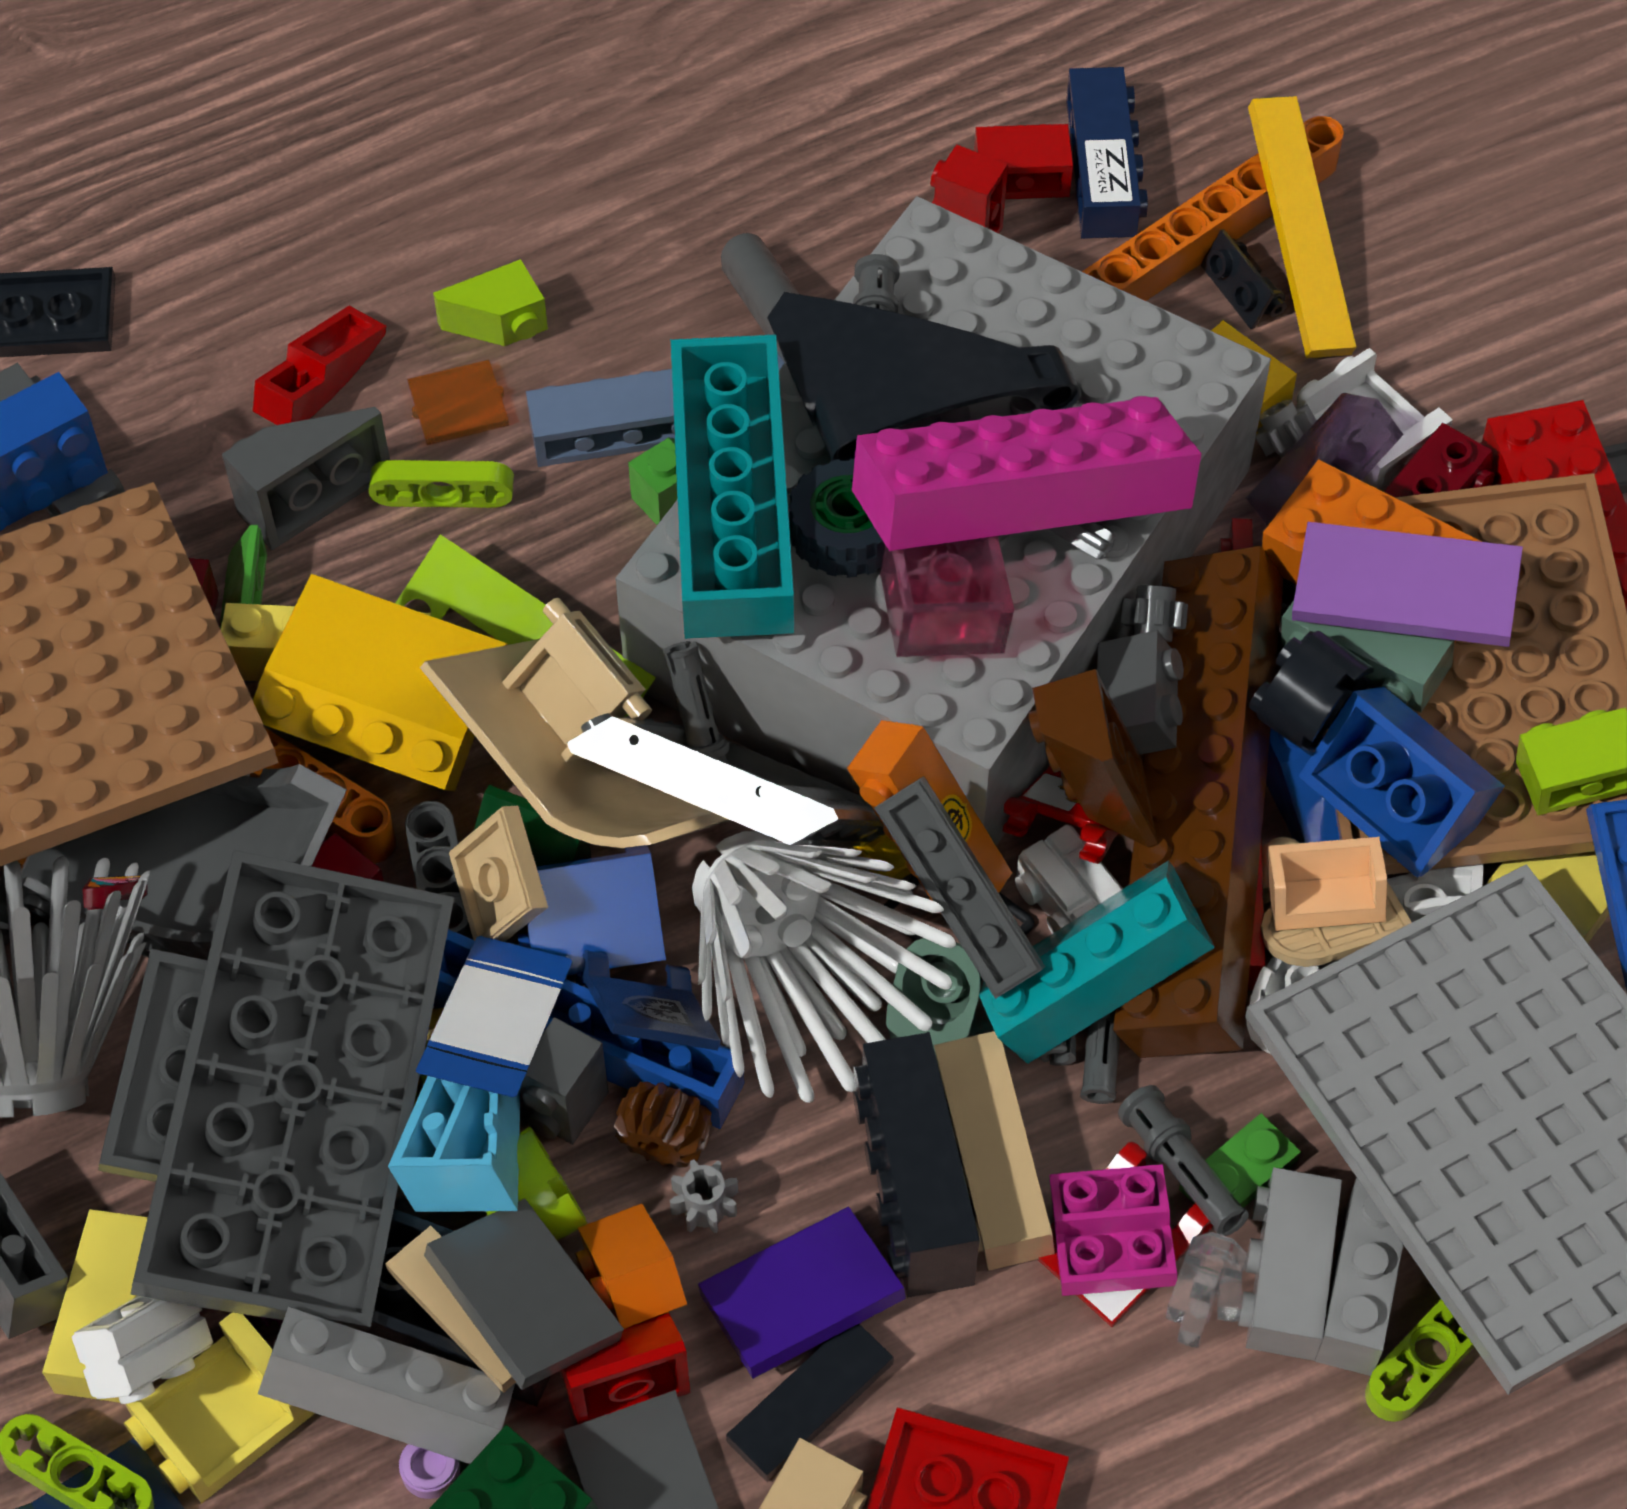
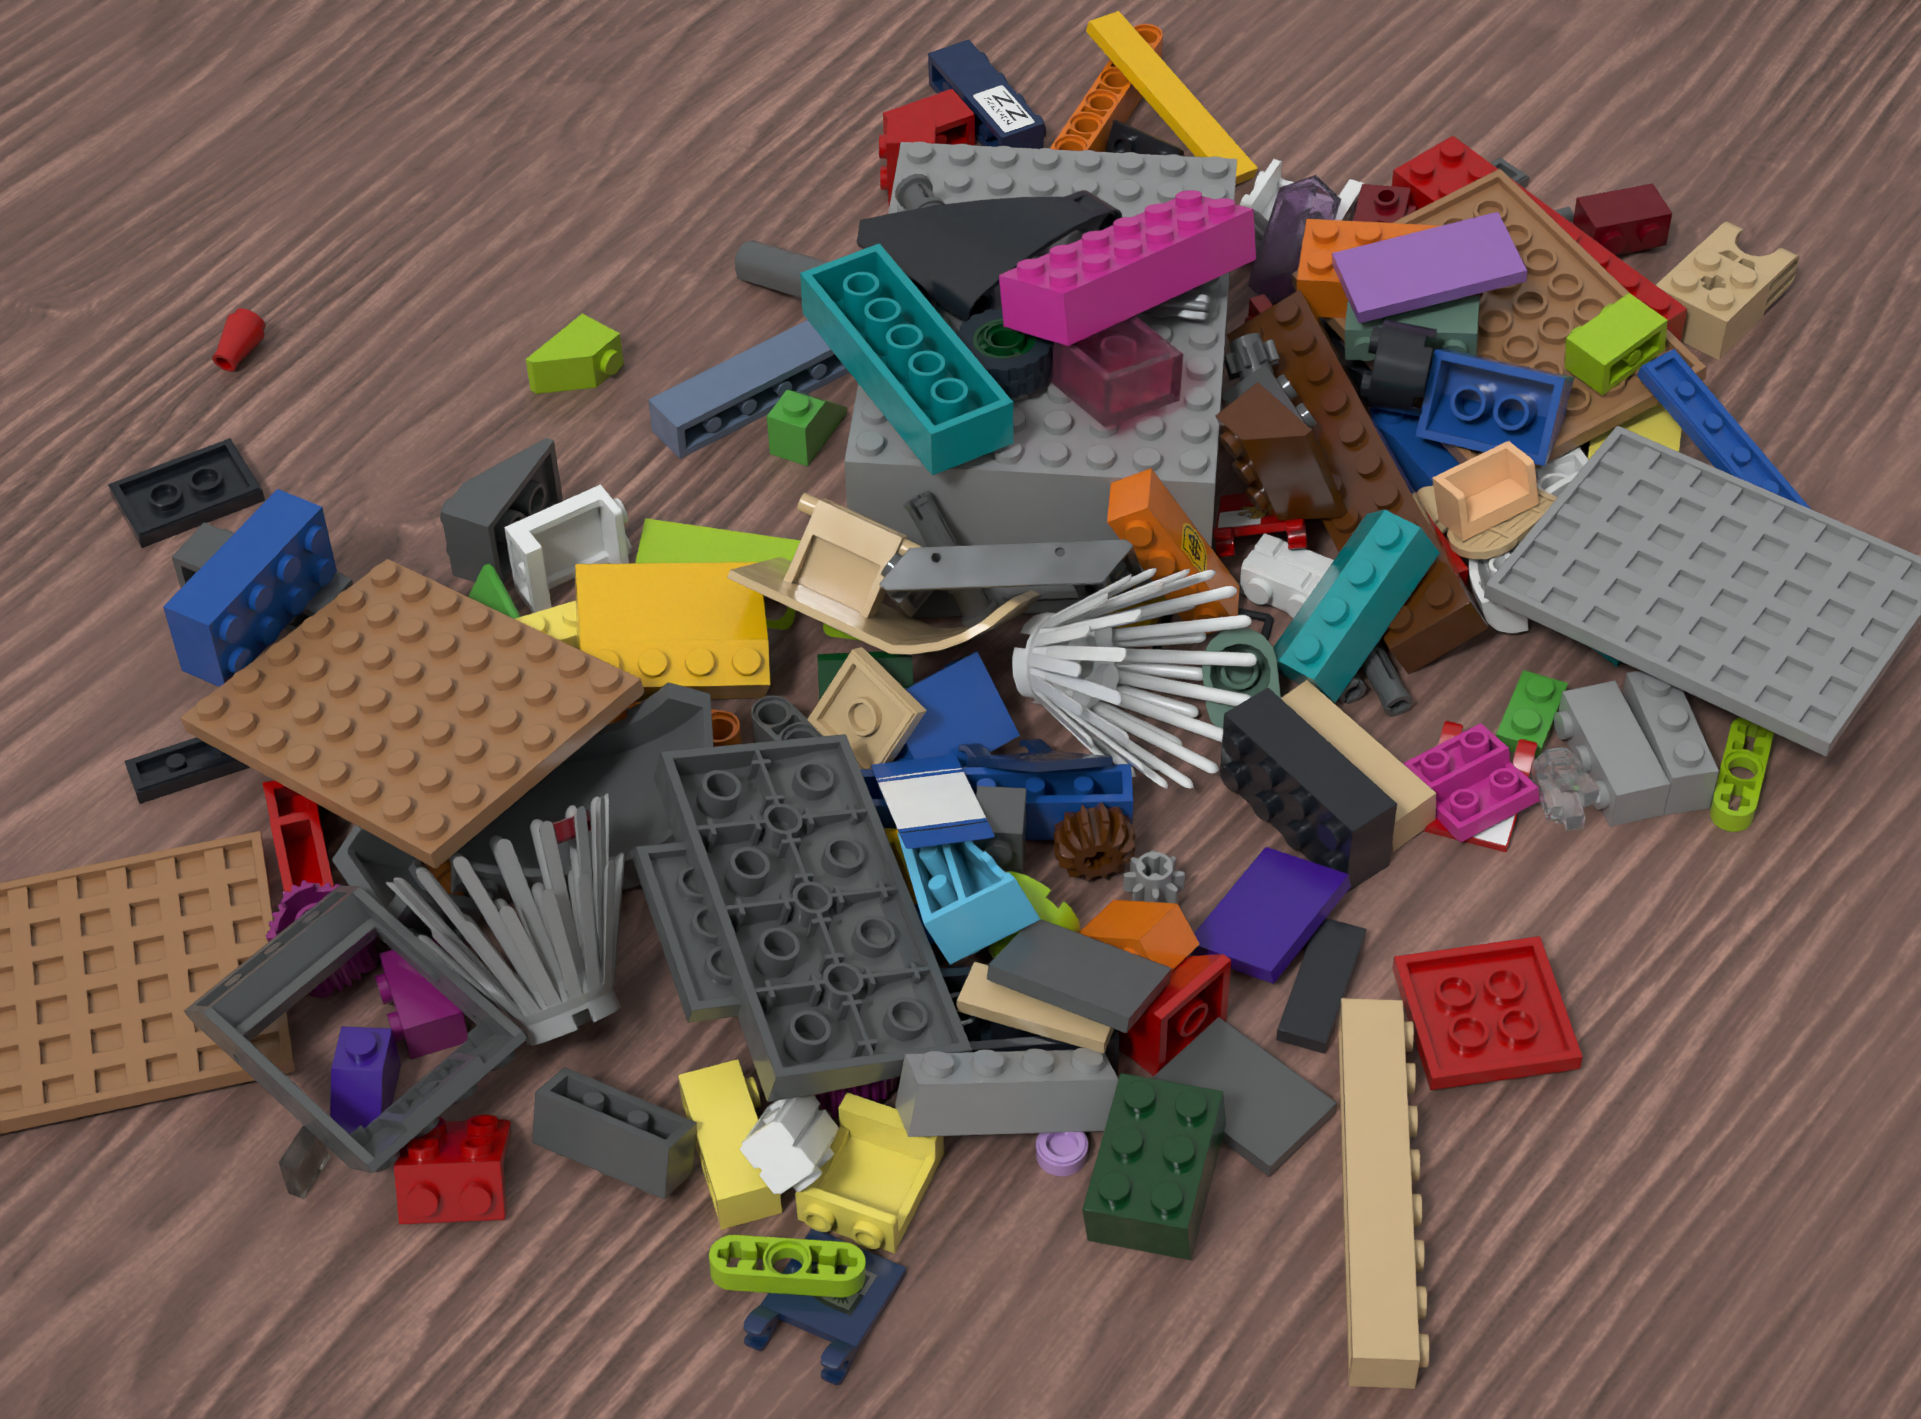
camera: 25 degrees left, 10 degrees down
(184, 152) = (239, 337): none -> red cone
(317, 367) = (455, 447): red slope -> none
(341, 532) = (569, 533): none -> white panel
(458, 402) = (587, 436): clear orange piece -> none
(471, 483) = (641, 472): lime beam -> none
(960, 886) = (1258, 587): dark grey tile -> none
(1169, 1142) = (1472, 708): dark grey pin -> none

